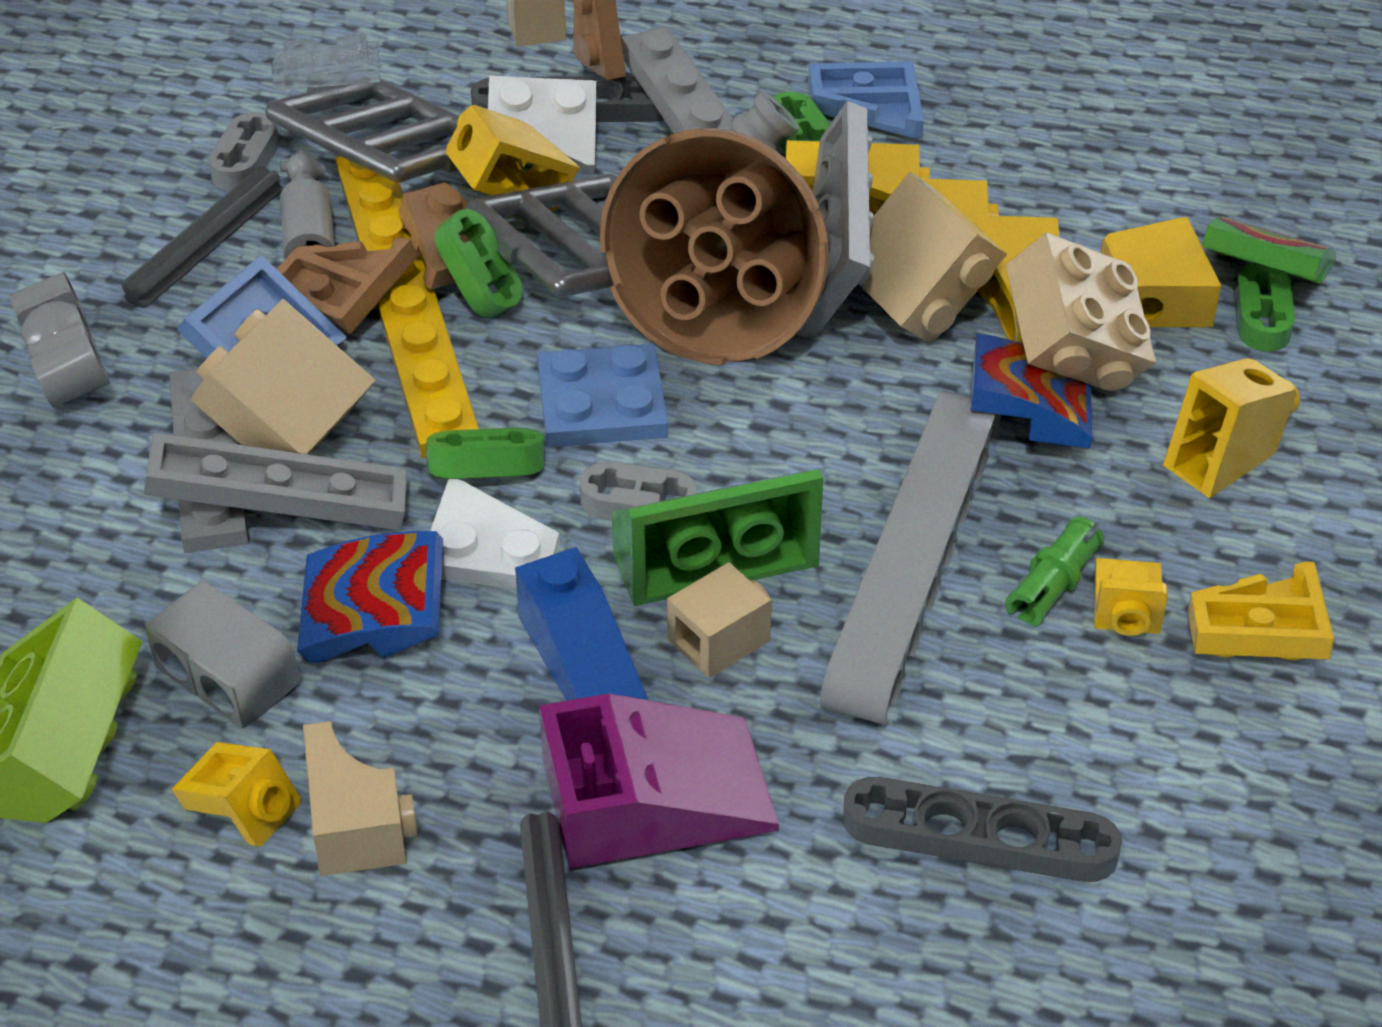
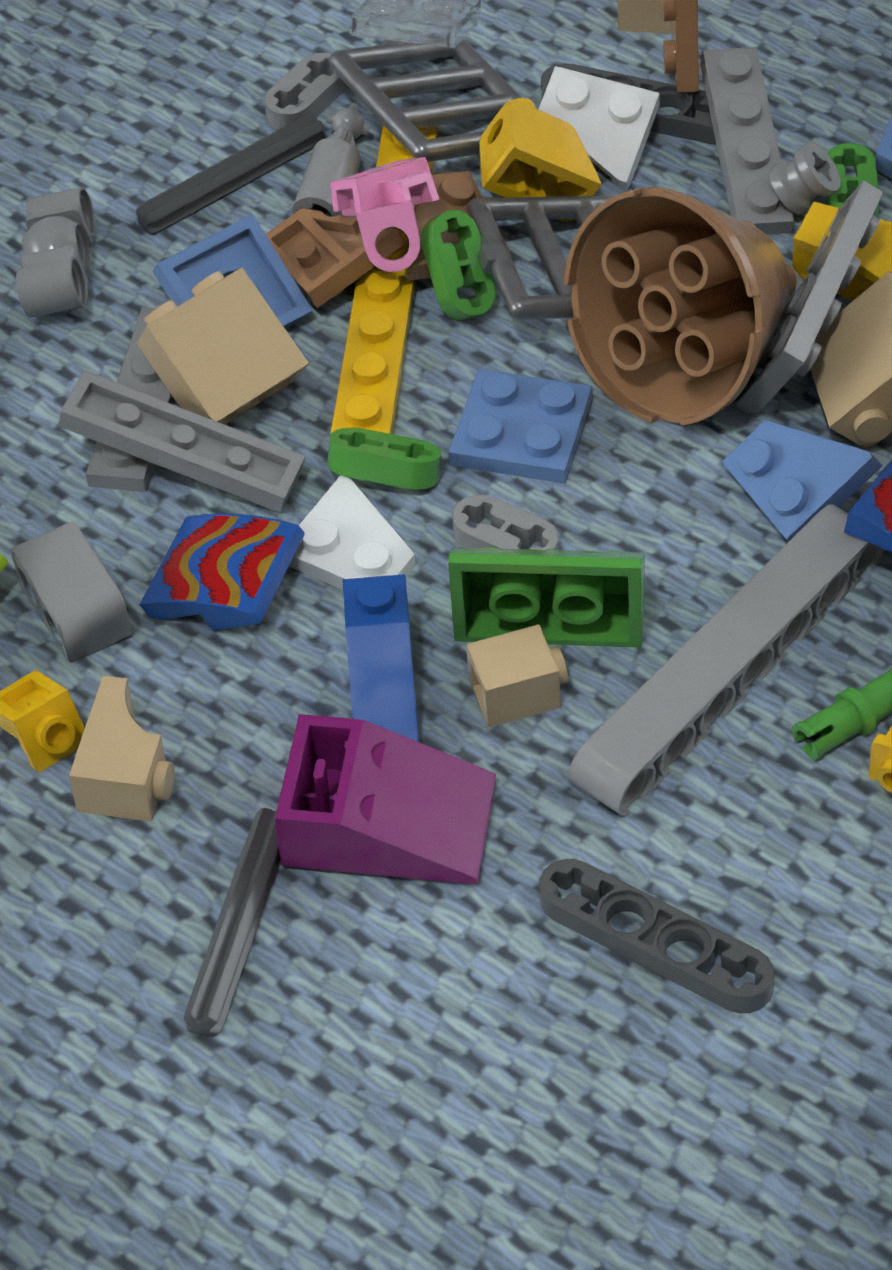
camera: 25 degrees right, 5 degrees up
(390, 214) = (386, 199): none -> bright pink piece
(893, 374) = (797, 473): none -> medium blue wing

